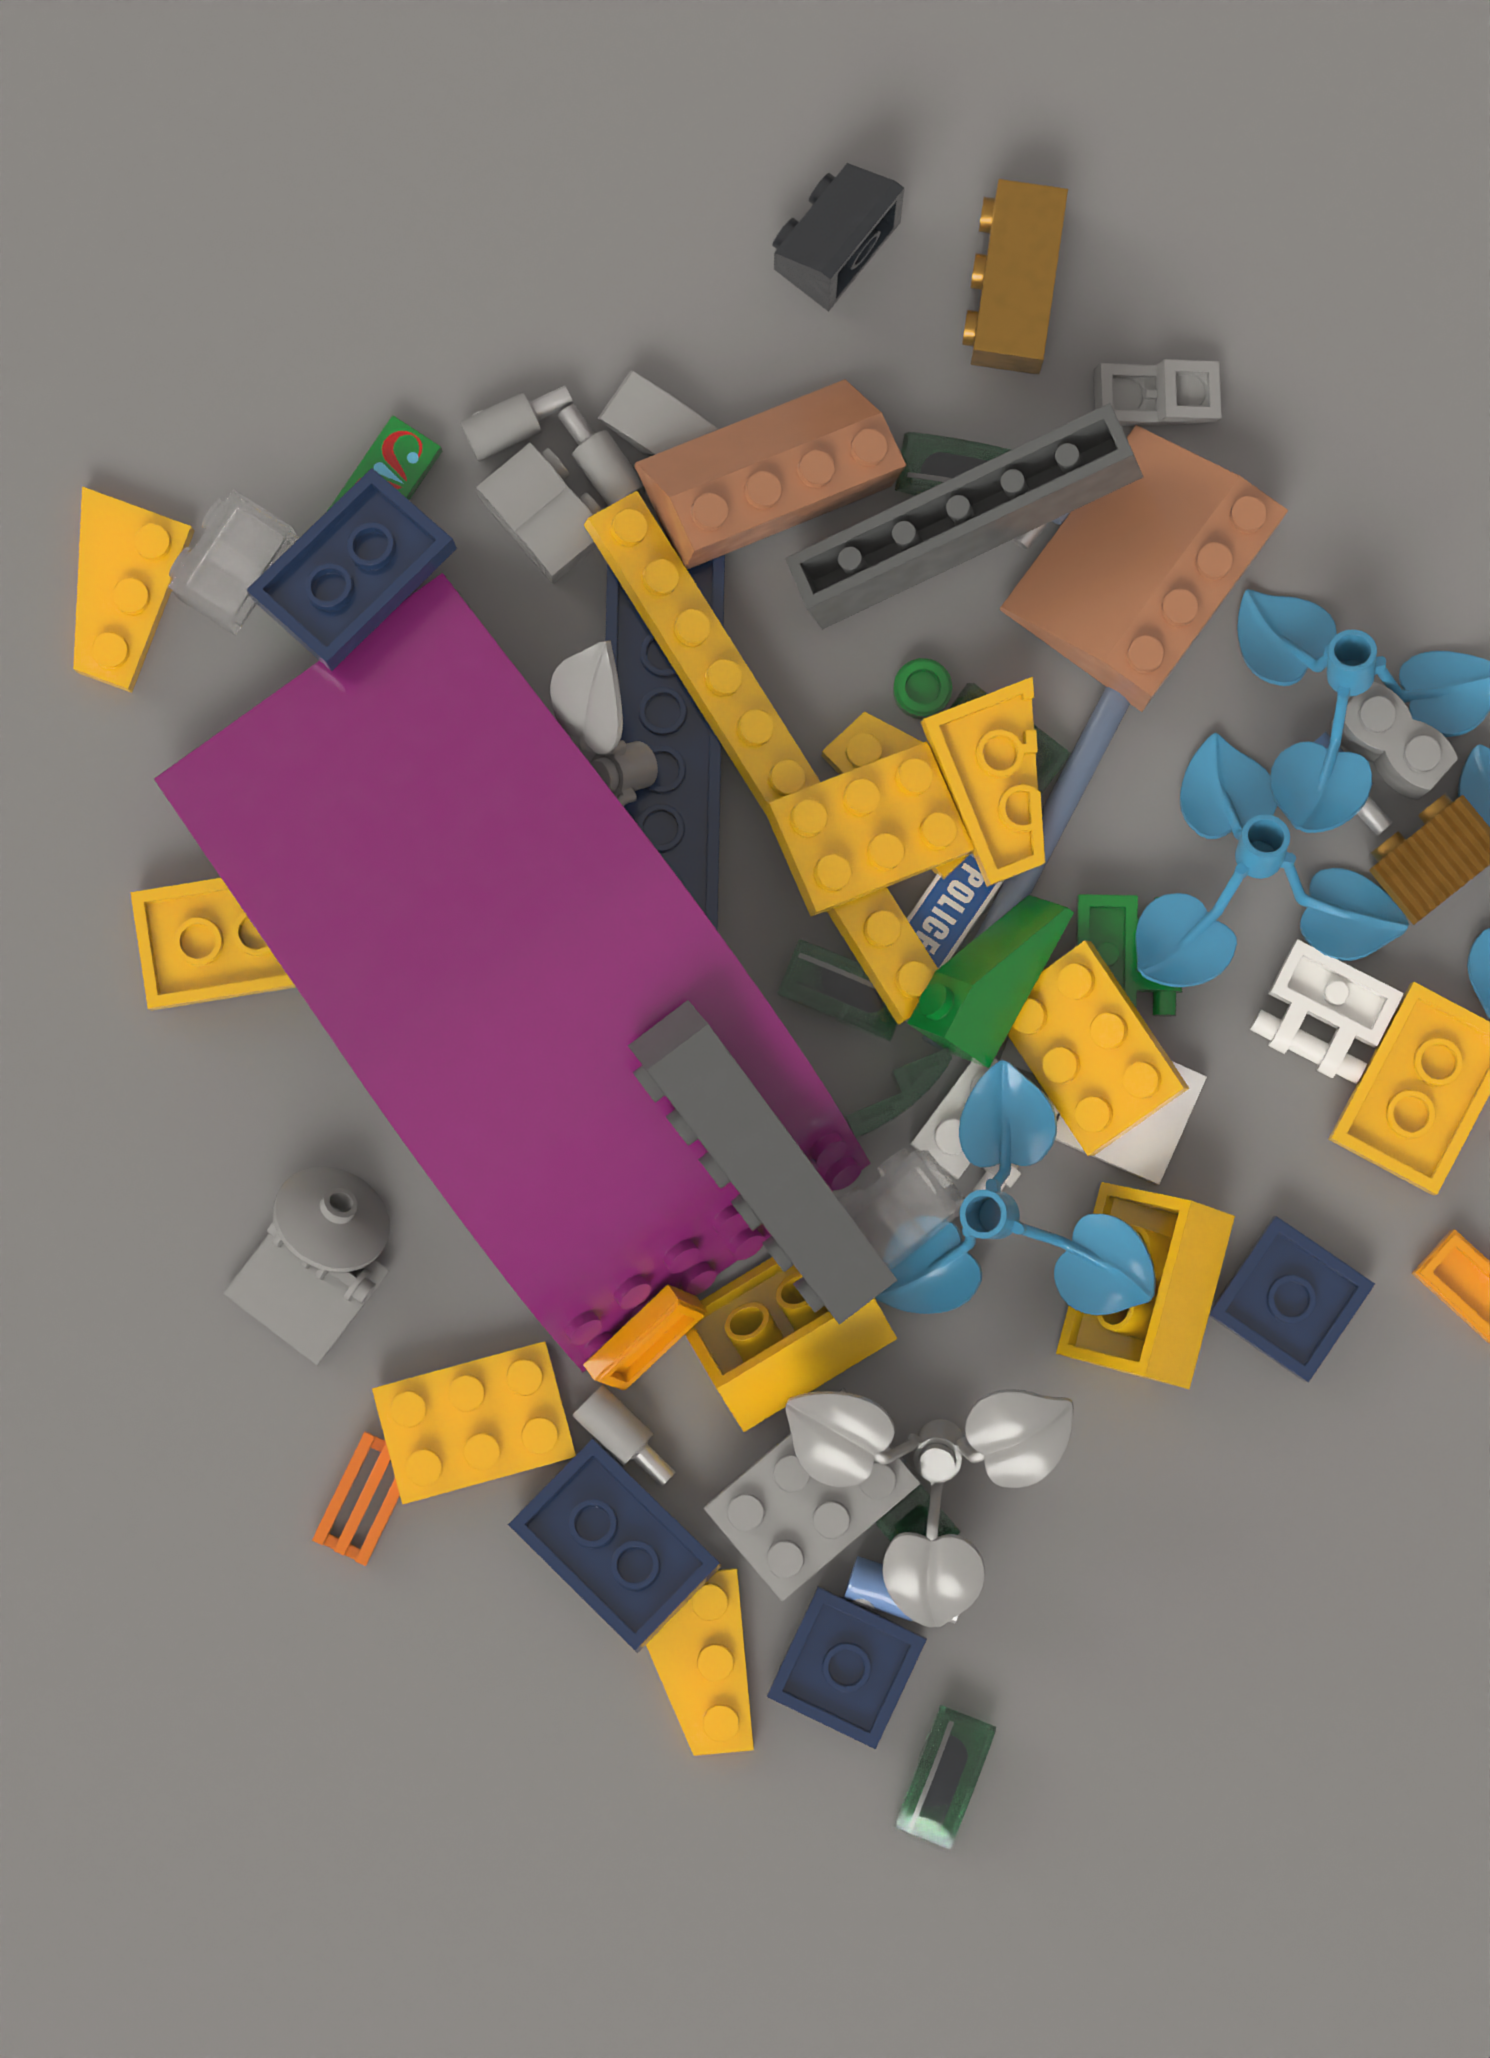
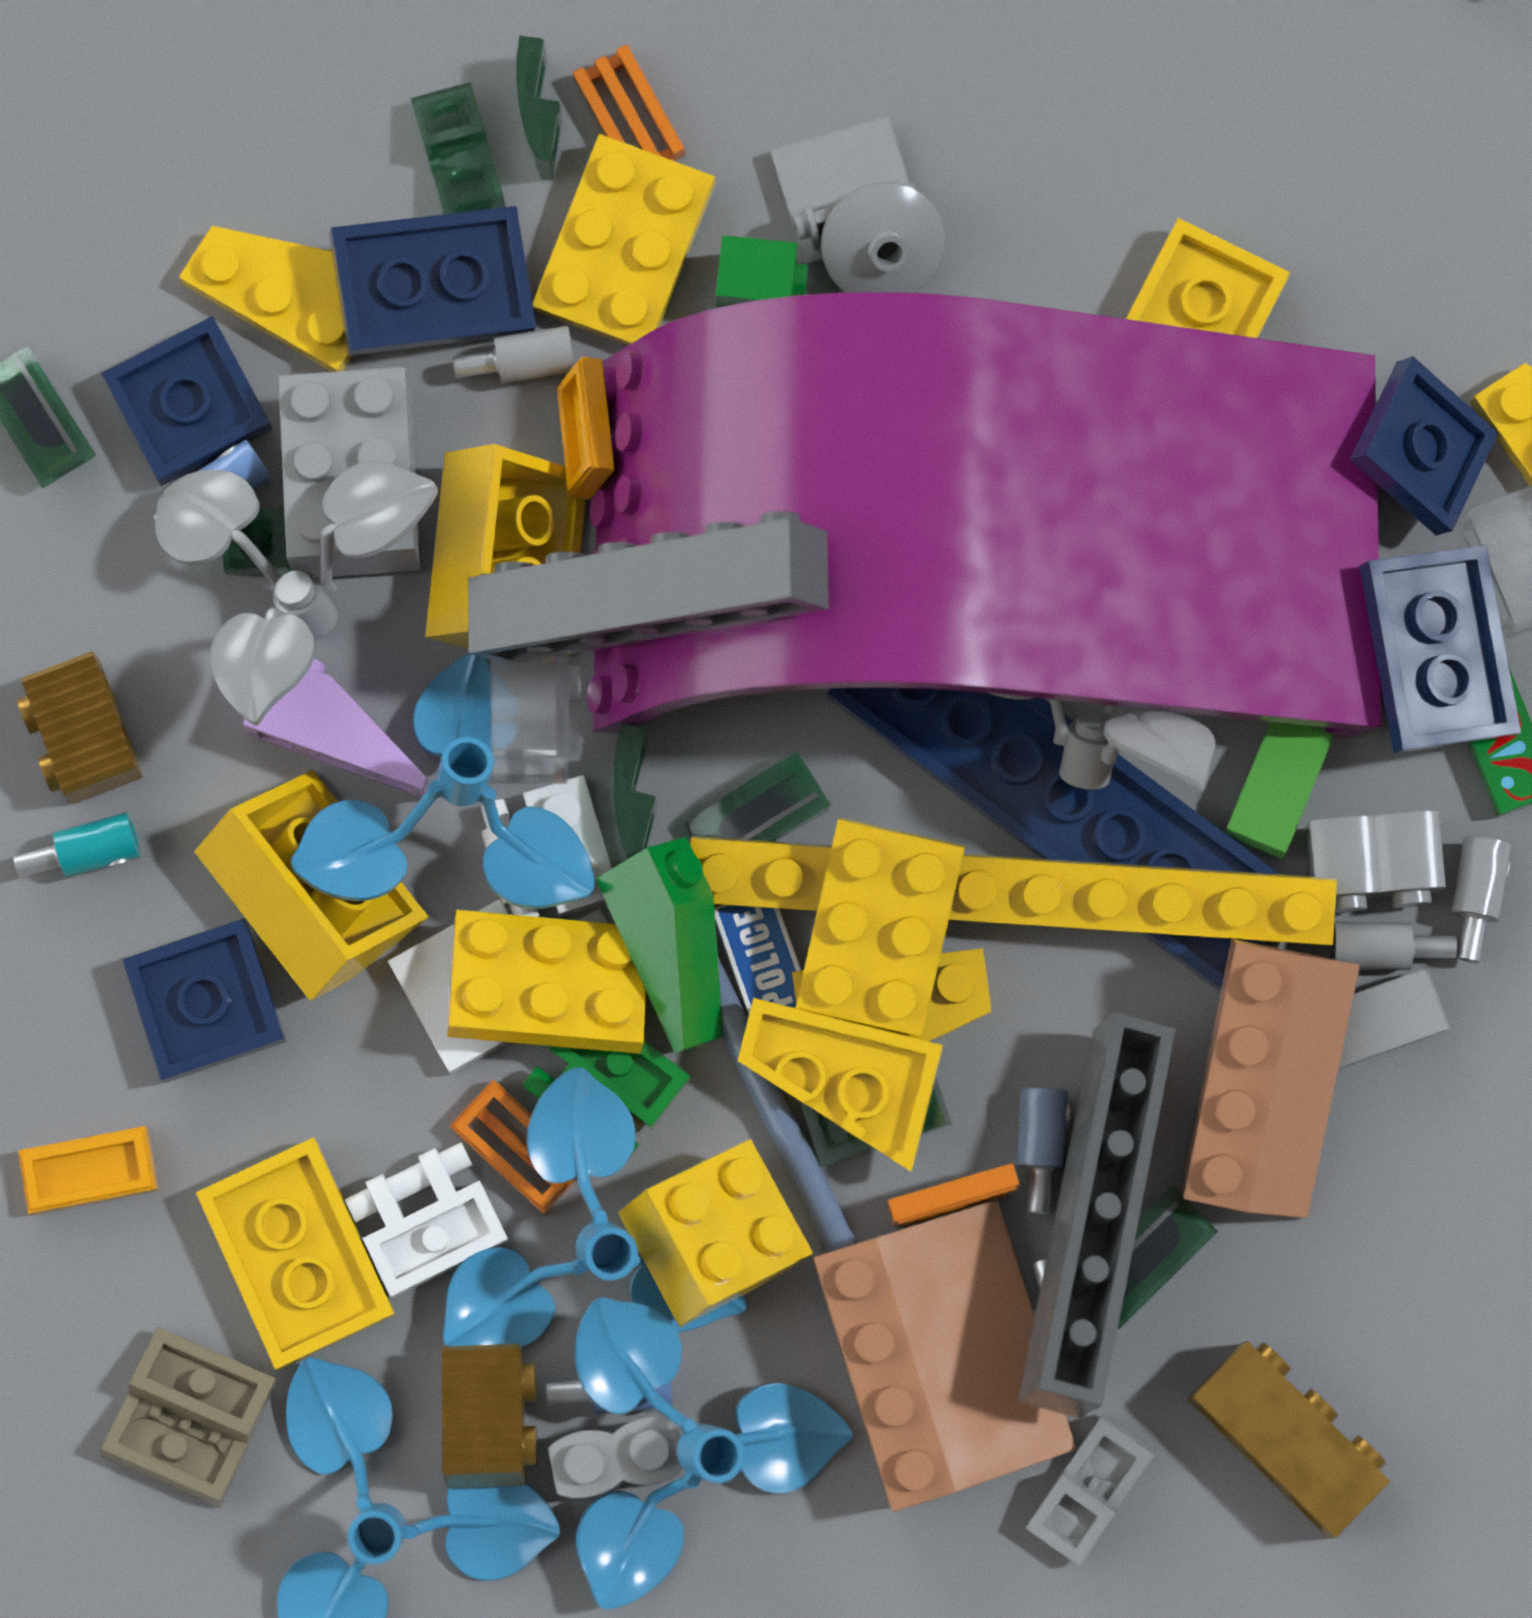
camera: 125 degrees right, 5 degrees down
(199, 692) = (1424, 446): none -> dark blue plate
(425, 1561) = (539, 116): none -> clear green slope
(427, 1294) = (758, 271): none -> green brick
(494, 1608) = (457, 150): none -> clear green slope
(544, 620) = (1278, 786): none -> bright green slope
(838, 233) = (1445, 1300): black slope -> none
(922, 688) = (975, 1080): green tile -> none
(933, 606) = (1042, 1141): none -> sand blue piece
(1015, 1343) = (333, 729): none -> lavender slope
(1022, 639) = (953, 1196): none -> orange tile
(1160, 1552) = (79, 728): none -> pearl gold brick
(1183, 786) = (715, 1232): none -> yellow brick
(1216, 1035) = (478, 1110): none -> orange tile
(1245, 1478) = (84, 848): none -> teal piece

